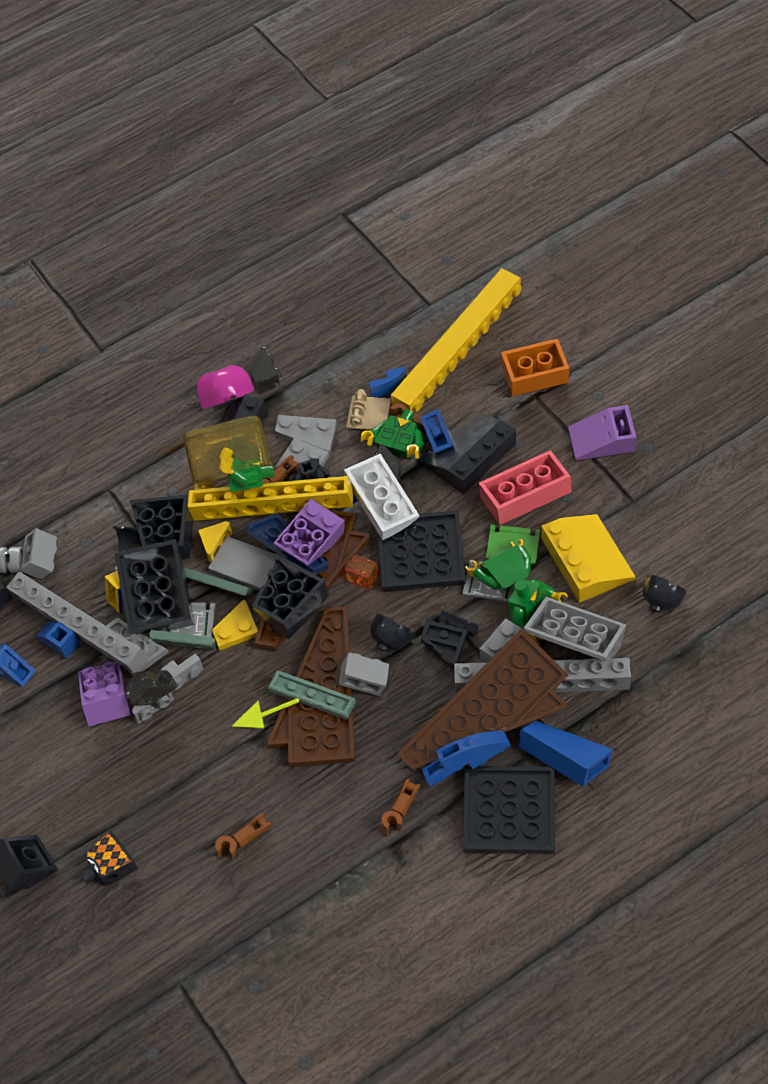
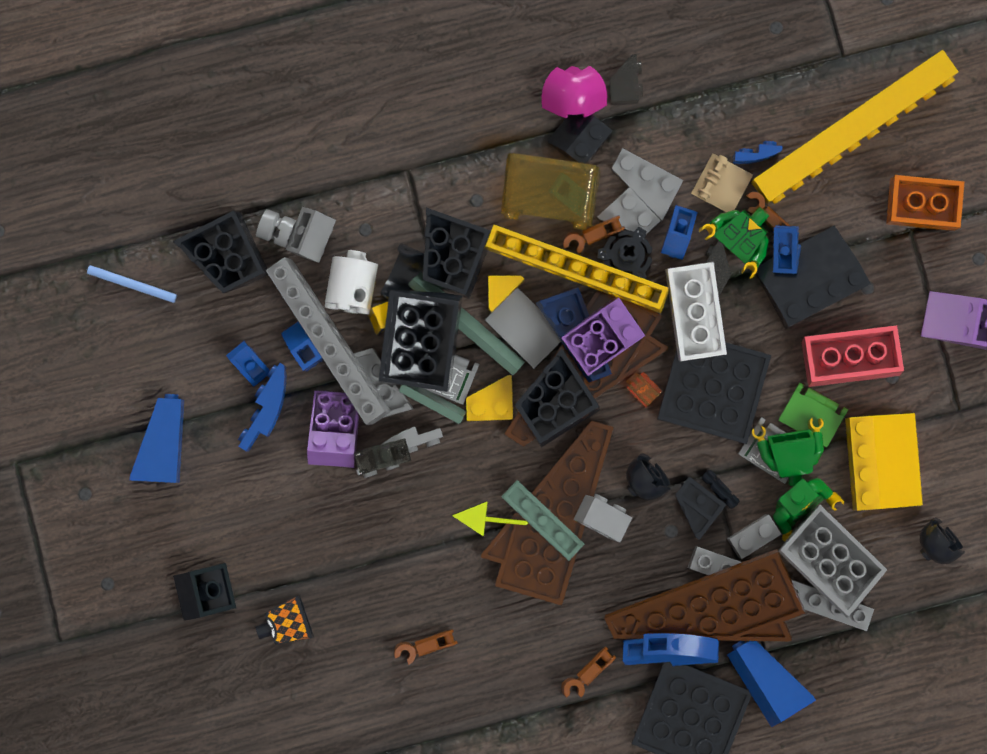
camera: 15 degrees right, 30 degrees up
(40, 691) = (271, 398): none -> blue slope
(83, 575) = (351, 283): none -> white cylinder
(243, 474) = (559, 235): green torso -> none
(346, 454) = (679, 232): none -> blue slope

